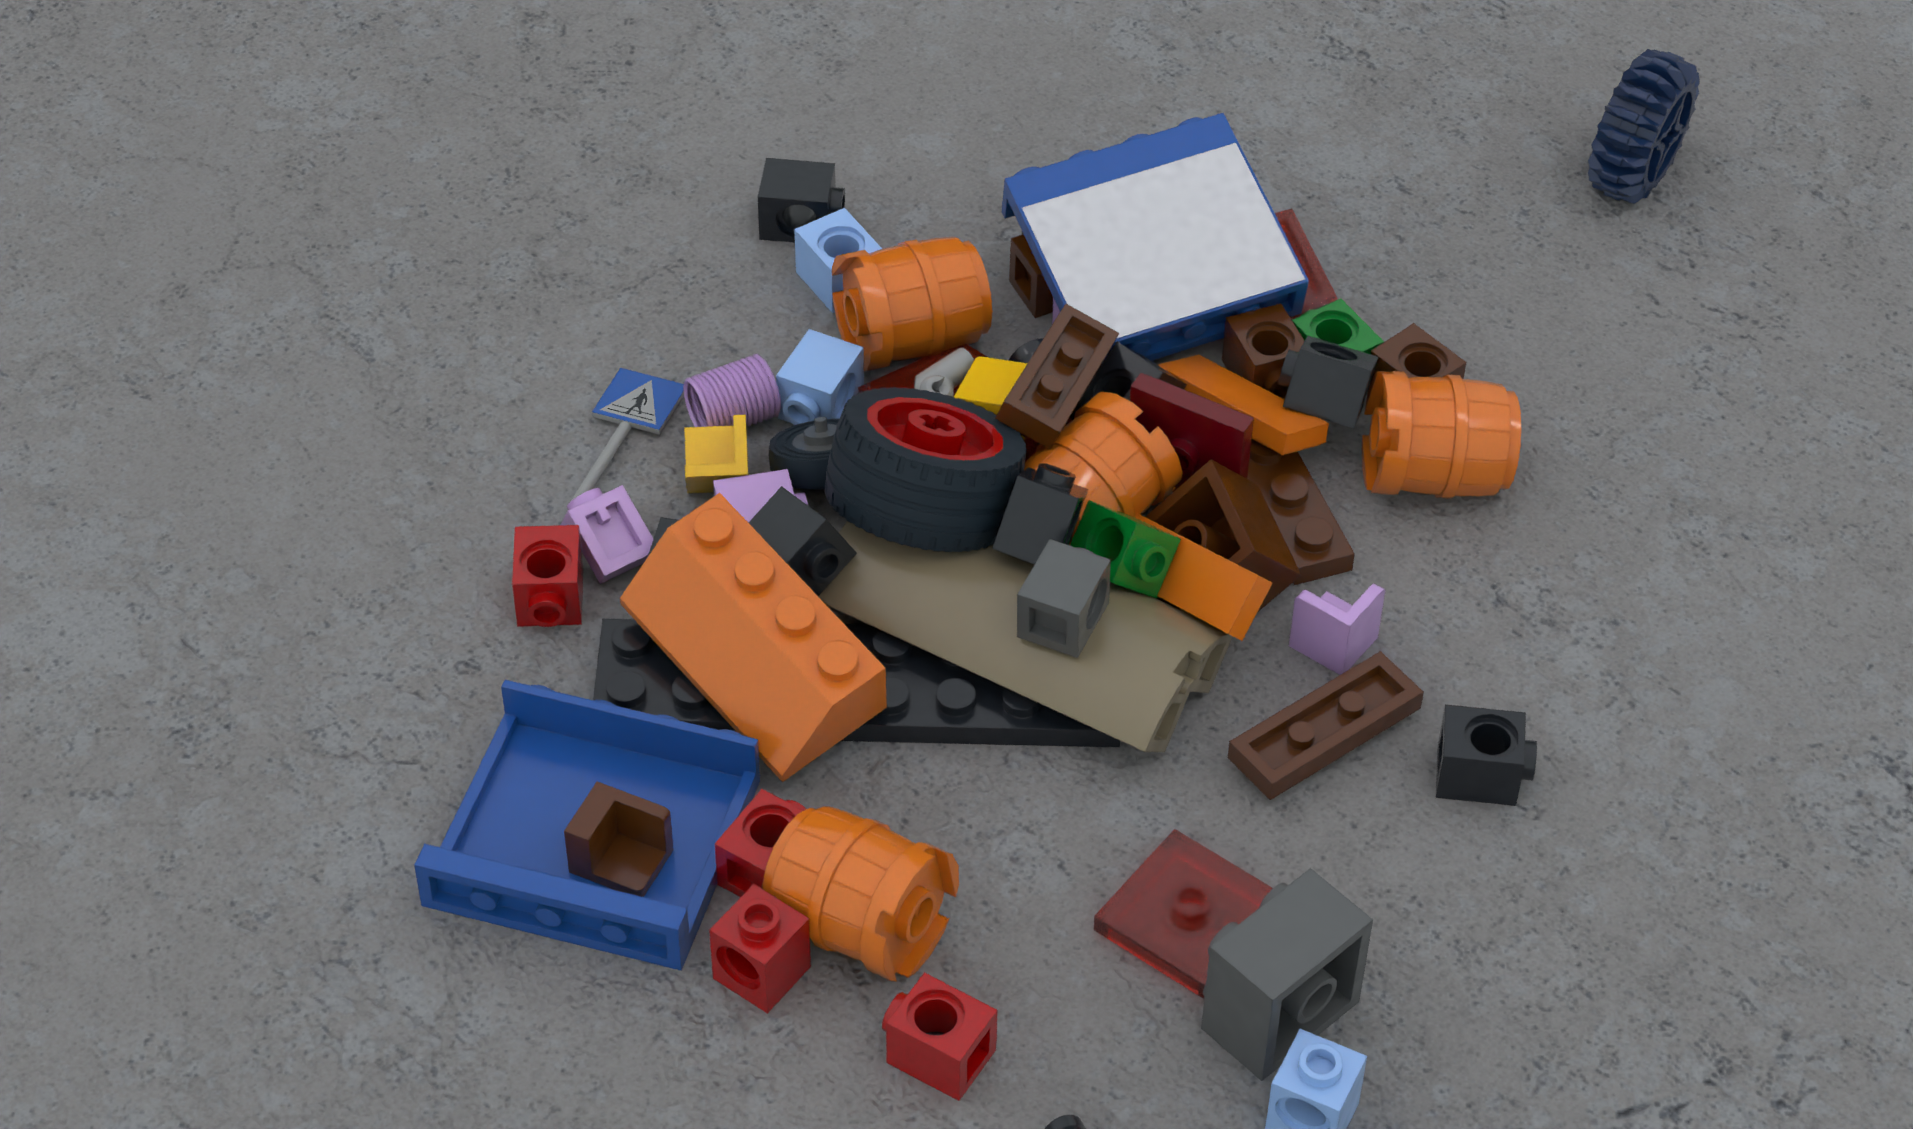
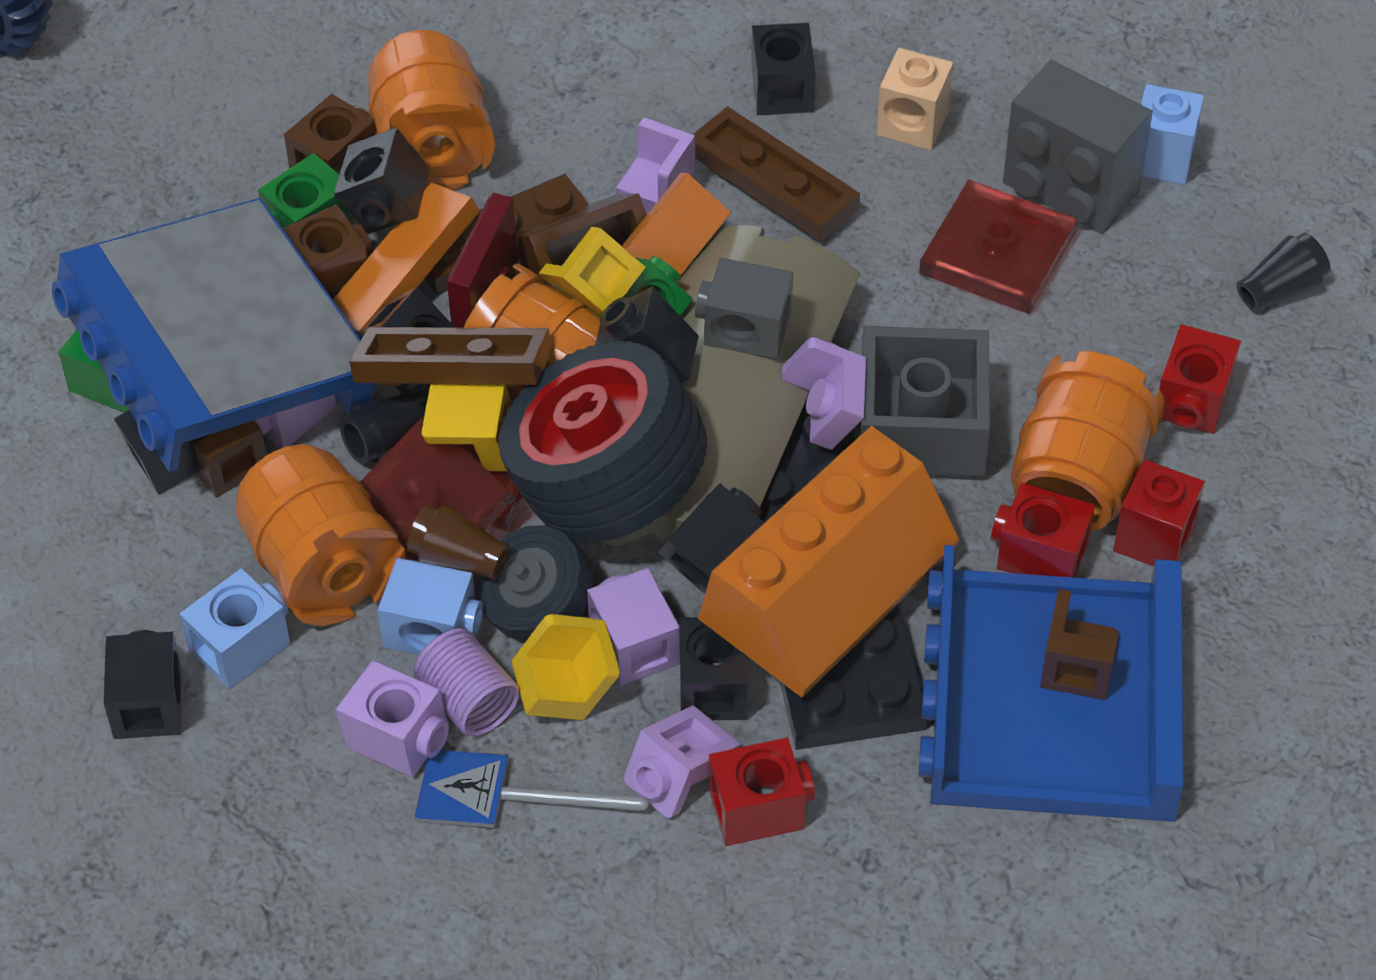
camera: 100 degrees left, 5 degrees up
(706, 338) = (386, 697): none -> lavender brick
(868, 368) = (454, 542): none -> reddish brown cone
(945, 373) = (461, 474): light grey arm -> none
(957, 770) = (930, 394): none -> dark grey brick
(958, 678) = (835, 388): none -> lavender bracket
(1129, 485) = (595, 271): none -> yellow panel
(1410, 860) = (914, 98): none -> light nougat brick

